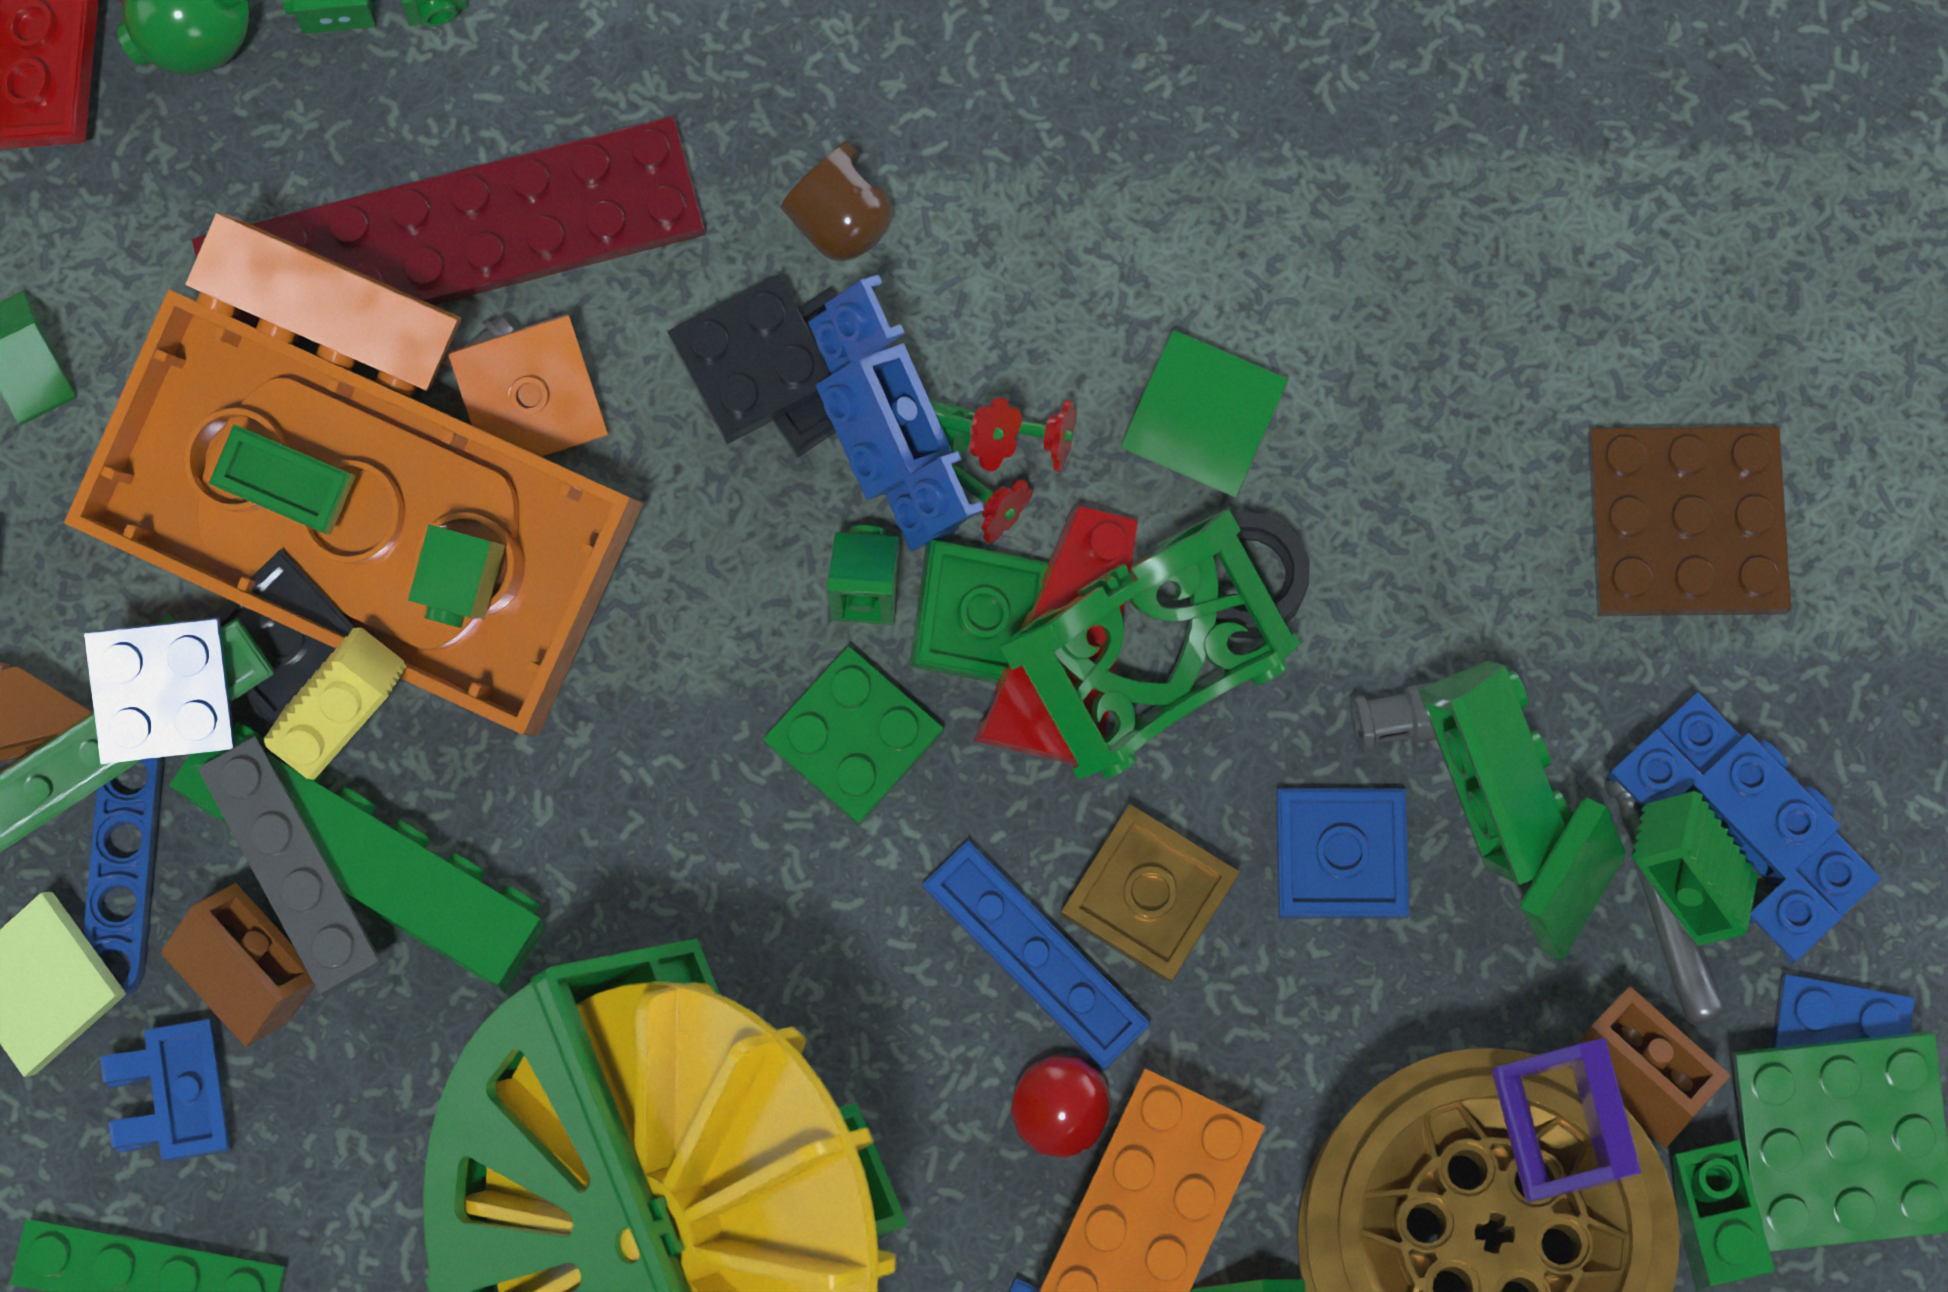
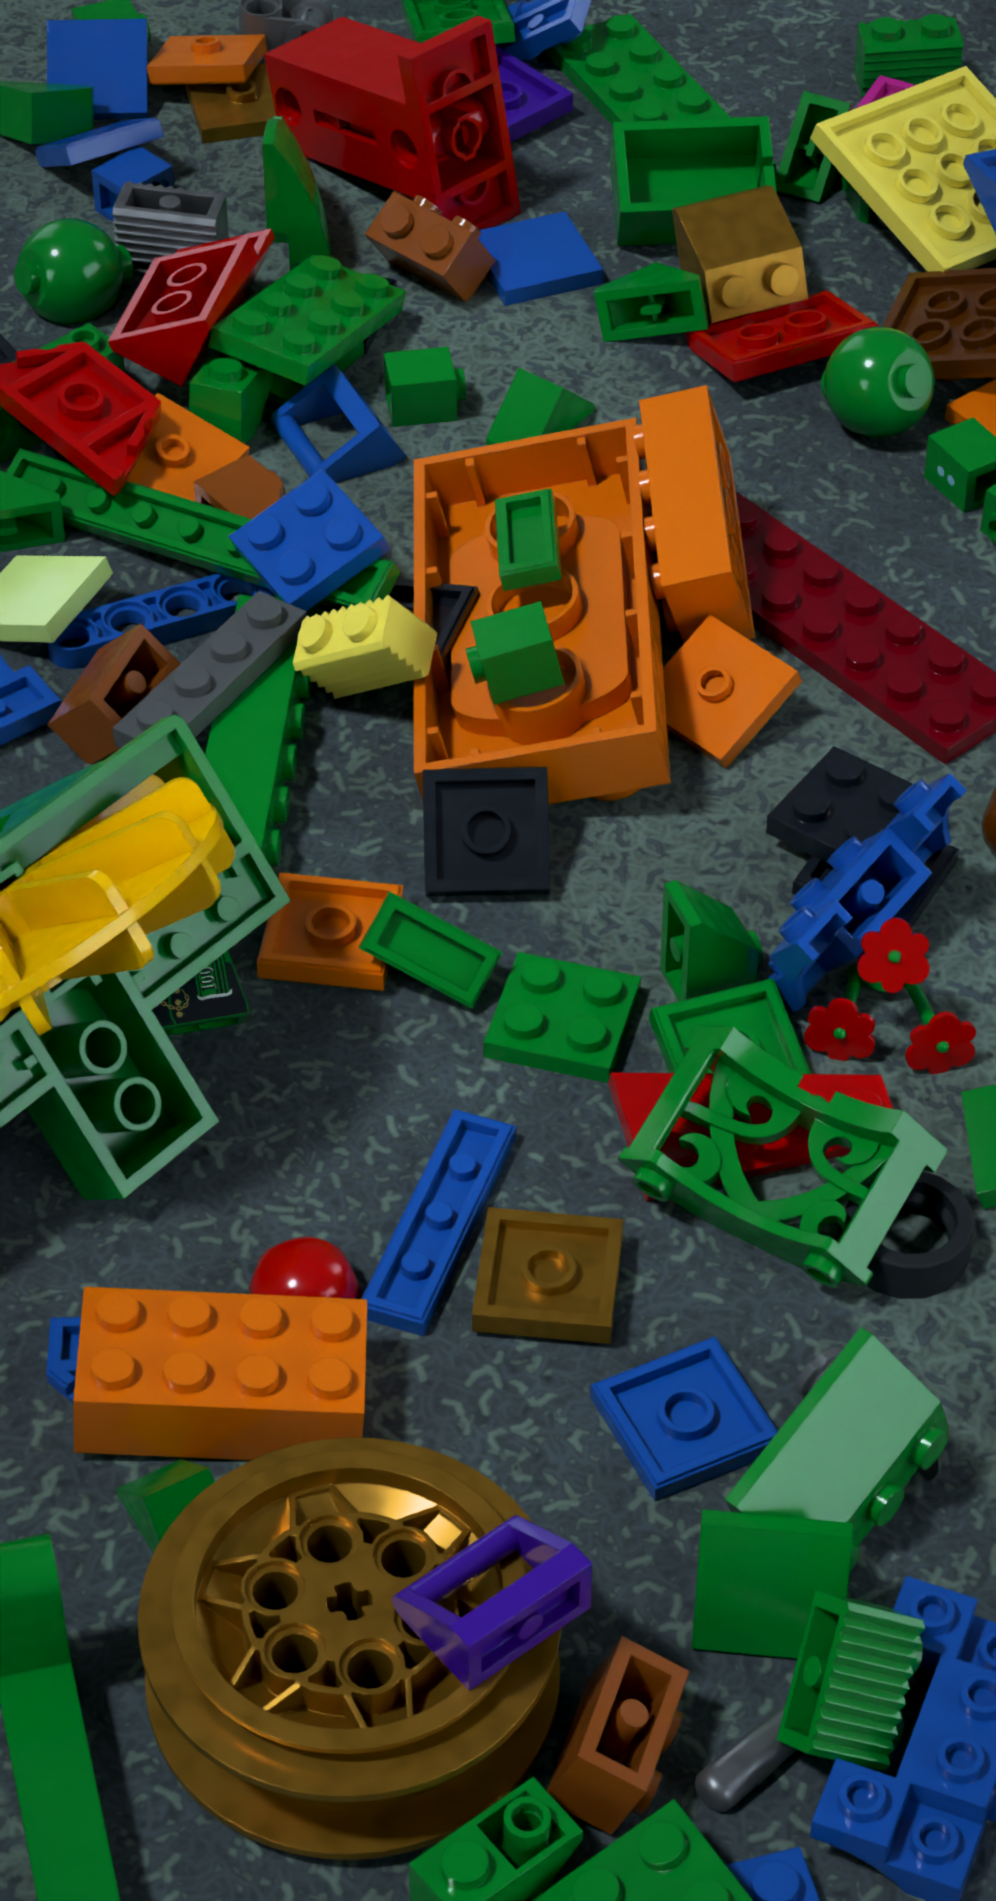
camera: 65 degrees right, 30 degrees down
(613, 699) = (486, 831): none -> black plate
(648, 887) = (320, 933): none -> orange plate
(740, 820) = (430, 949): none -> green tile

